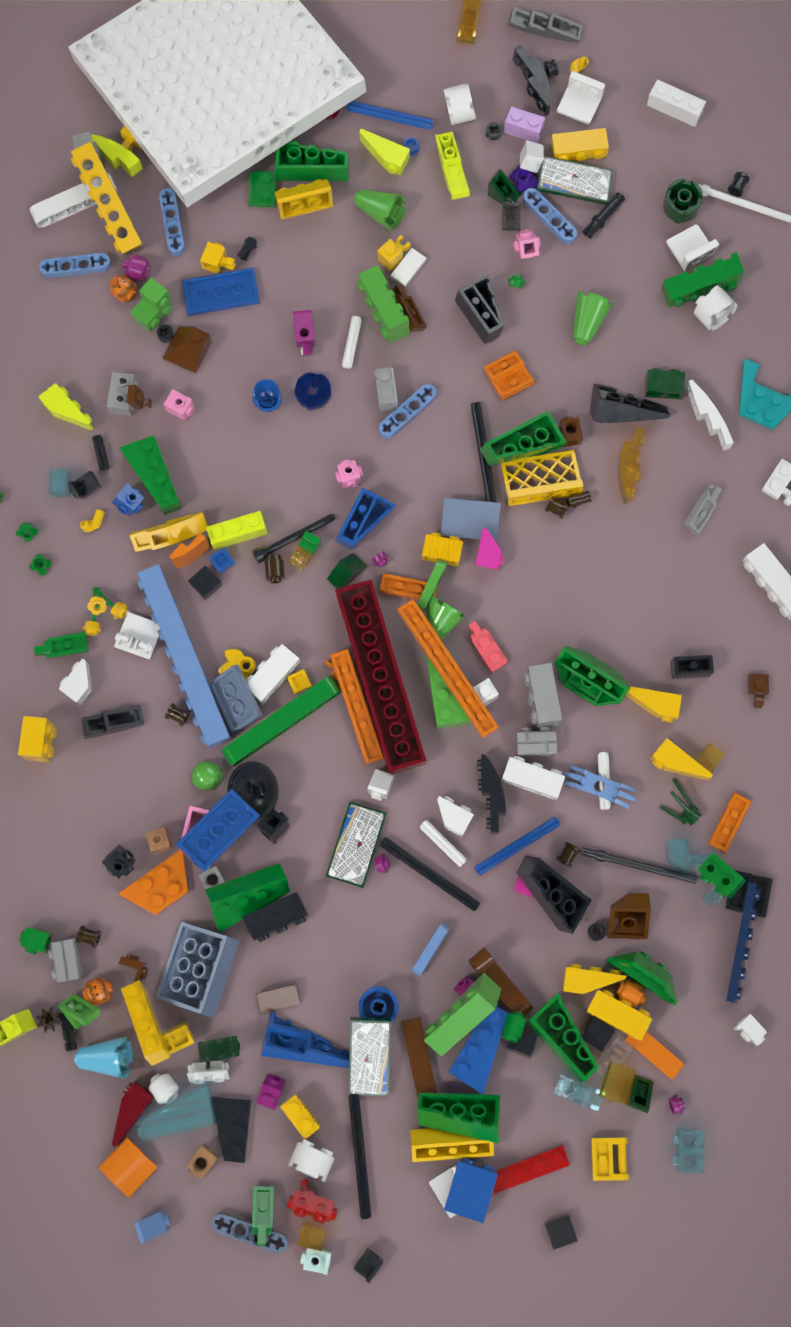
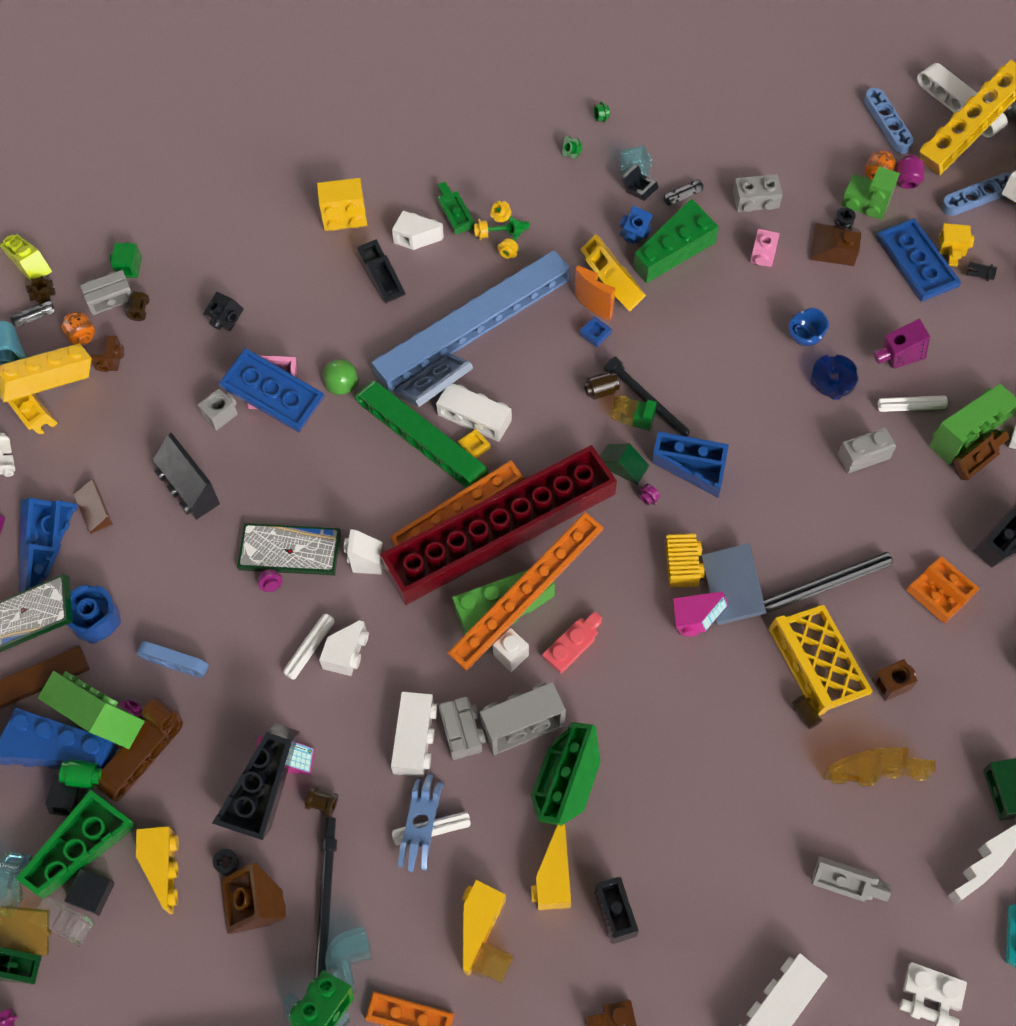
camera: 75 degrees right, 15 degrees down
(35, 564) = (539, 169): green plate -> none
(61, 407) = (725, 139): neon yellow slope -> none
(79, 1011) = (52, 313): bright green slope -> none
(94, 523) = (601, 206): yellow arm -> none
(136, 398) = (754, 201): reddish brown plate -> none
(137, 636) = (483, 272): white hinge -> none
(159, 840) = (255, 341): medium nougat brick -> none
(160, 886) = (201, 359): orange wing -> none
(177, 714) = (403, 329): dark brown bush -> none
(197, 969) = (113, 418): sand blue slope -> none
(205, 582) = (565, 322): black piece -> none
(218, 1049) = (25, 457): clear green brick -> none
(236, 530) = (635, 336): neon yellow brick -> none
(236, 657) = (478, 375): yellow plate -> none
(245, 895) = (204, 439): green wedge -> none
(247, 780) = (332, 420): black dish -> none
(274, 819) = (293, 453): black brick -> none
(348, 479) = (744, 434): bright pink brick -> none
(402, 586) = (623, 536): orange tile -> none
(407, 411) = (850, 481): medium blue beam -> none
(429, 874) = (266, 640): black axle -> none
(432, 584) = (631, 554): bright green beam -> none
(442, 617) = (592, 575): bright green cone -> none
(491, 786) = (376, 695): black slope -> none
(517, 845) = (322, 736): blue axle -> none
(526, 440) = (861, 622): green wedge -> none
(557, 507) = (785, 685): dark brown bush -> none
(617, 408) = (952, 728): black wedge -> none
(620, 1014) = (114, 913): yellow brick -> none
(631, 992) = (147, 925): orange head -> none
(645, 972) = (176, 940): green wedge -> none
(657, 1055) = (73, 976): orange tile -> none
(690, 813) = (407, 953): dark green plant -> none

